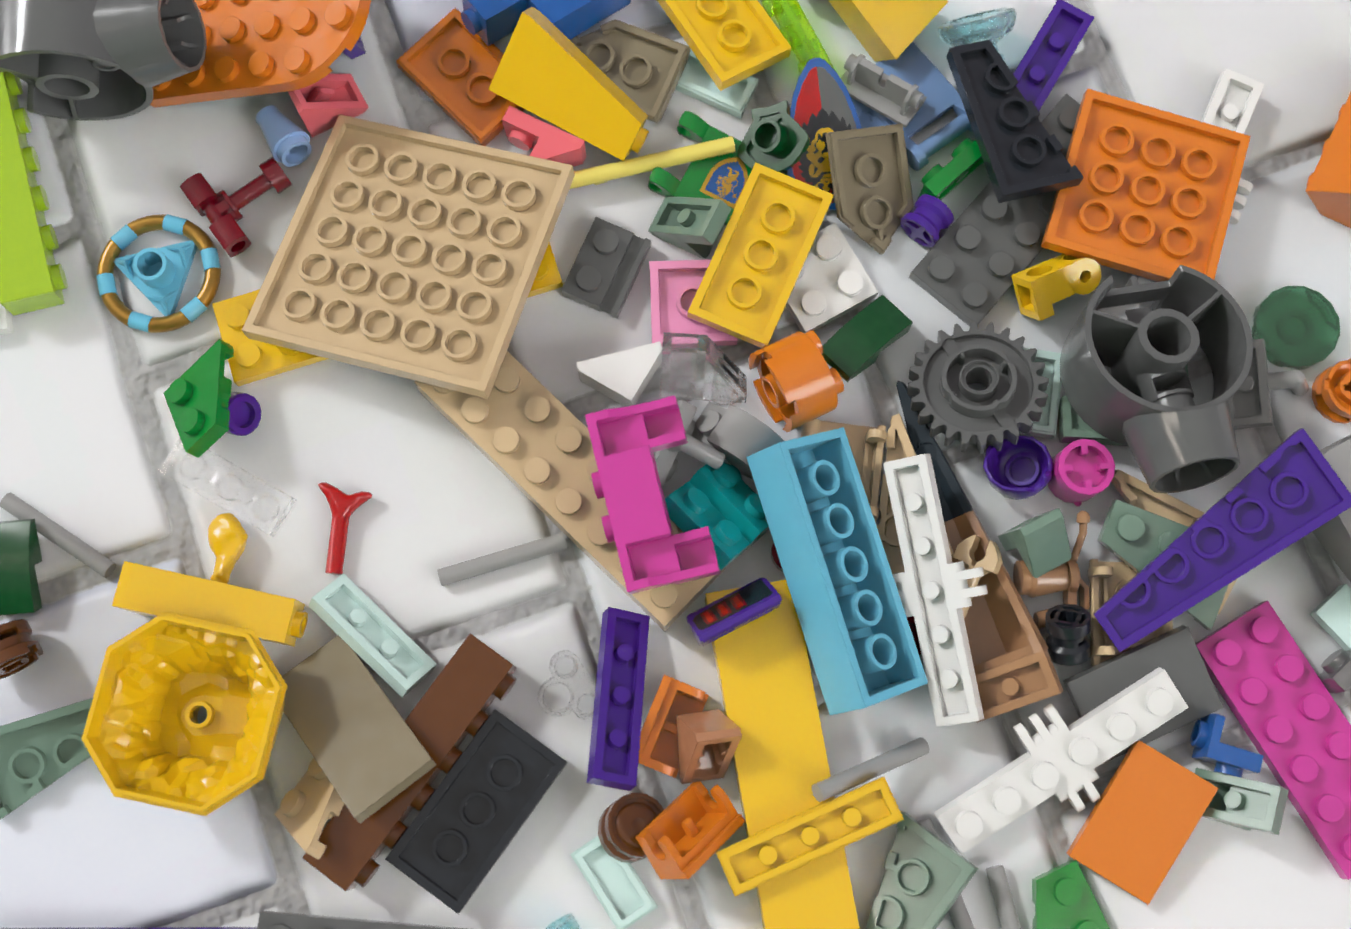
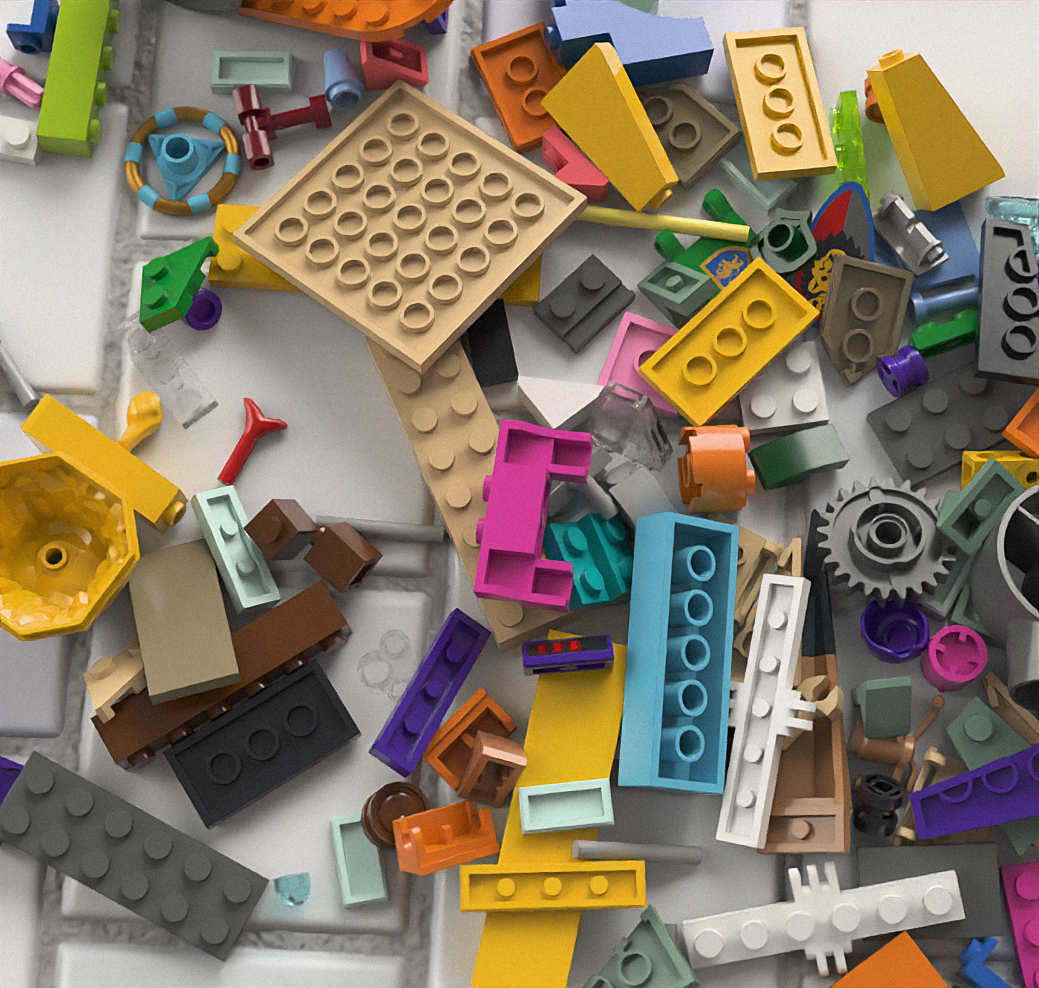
camera: 30 degrees right, 5 degrees down
(201, 153) = (266, 69): none -> light aqua tile
(410, 598) = (281, 529): none -> reddish brown brick
(478, 601) = (342, 556): none -> reddish brown brick
(539, 345) = (492, 347): none -> black tile
(790, 755) = (566, 806): none -> light aqua tile
(1050, 327) = (974, 512): none -> sand green slope

